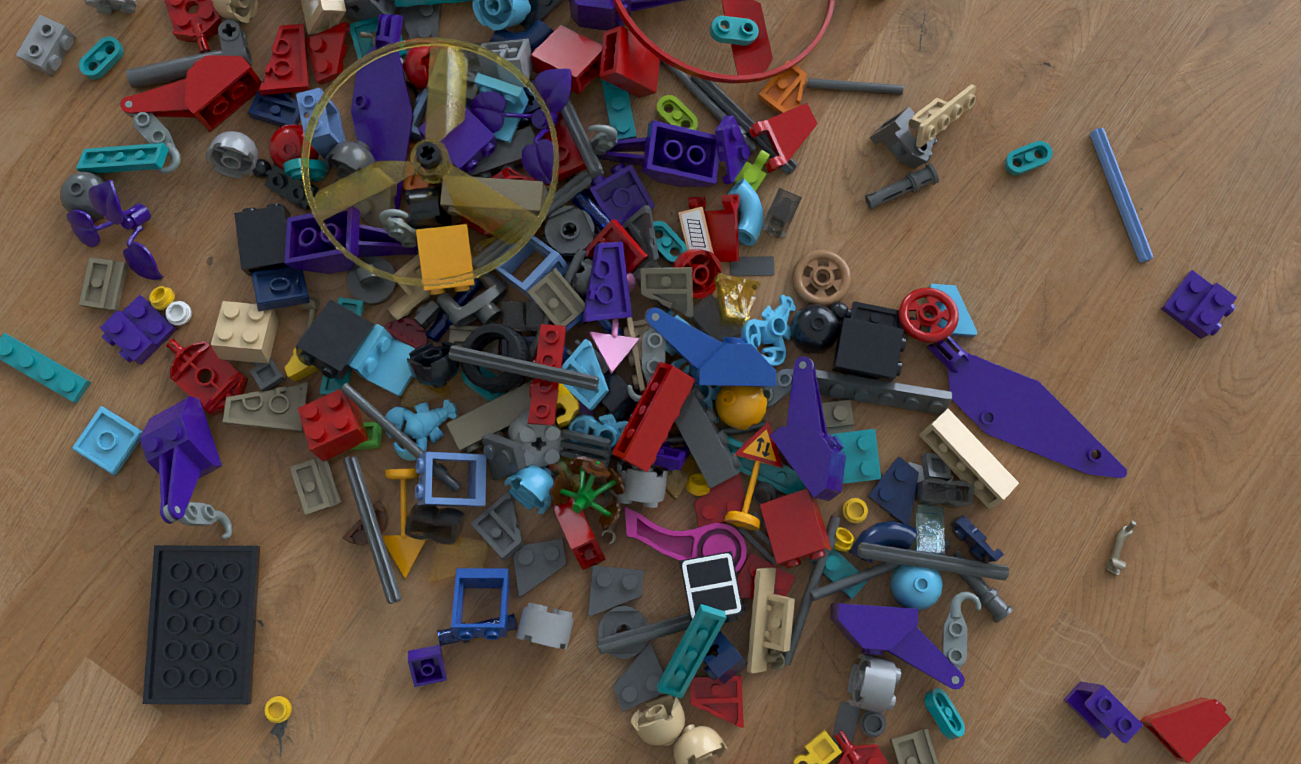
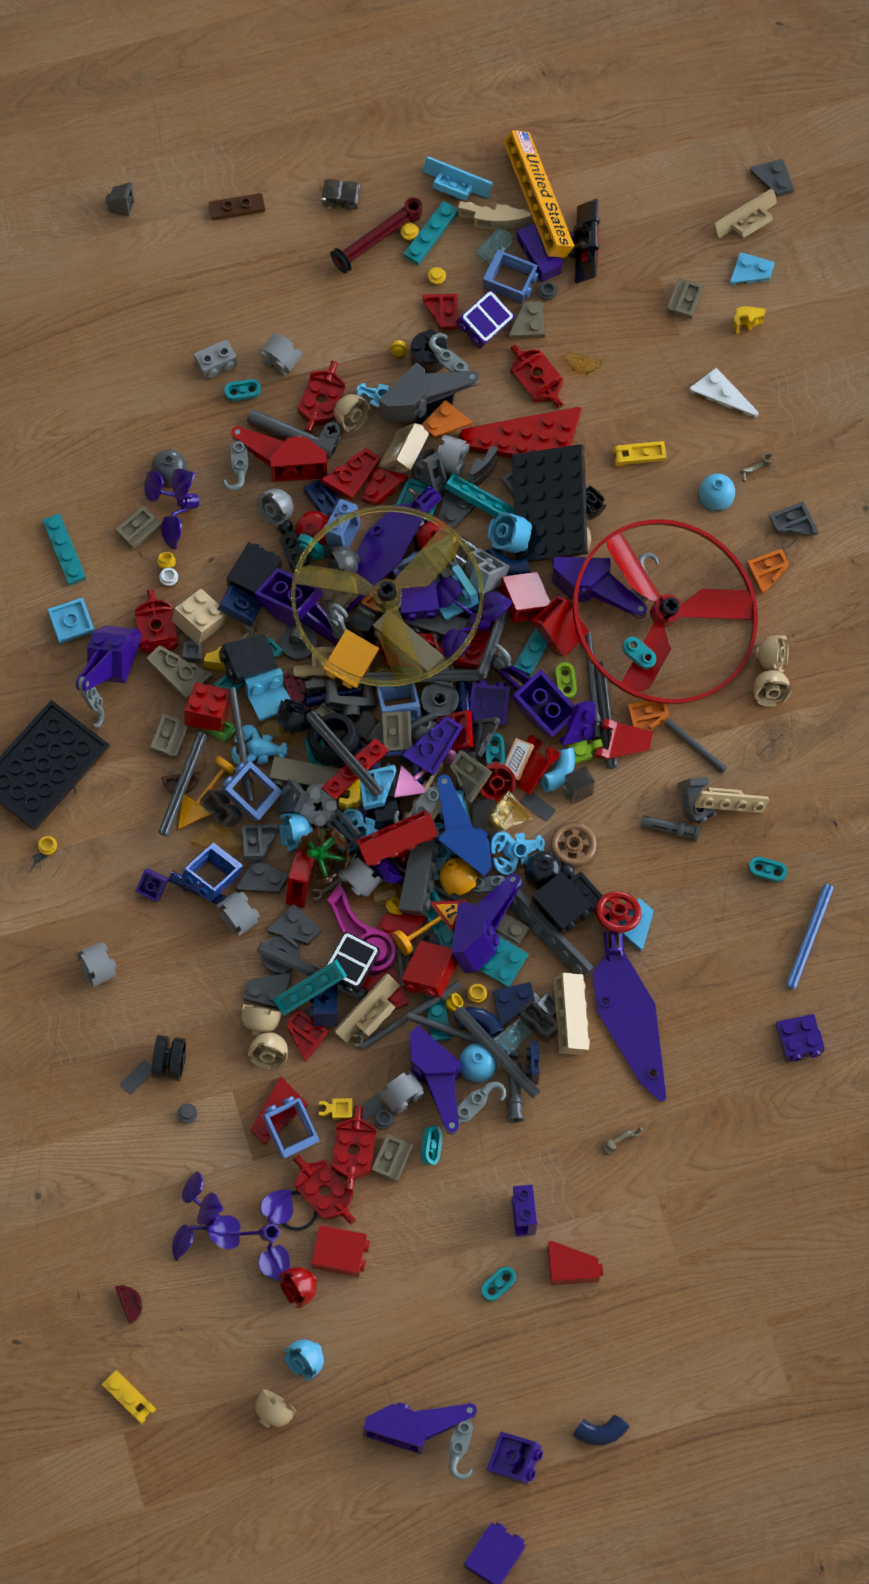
camera: 40 degrees right, 10 degrees down
(123, 158) = (208, 461): teal plate -> none
(137, 330) = (137, 569): dark purple plate -> none

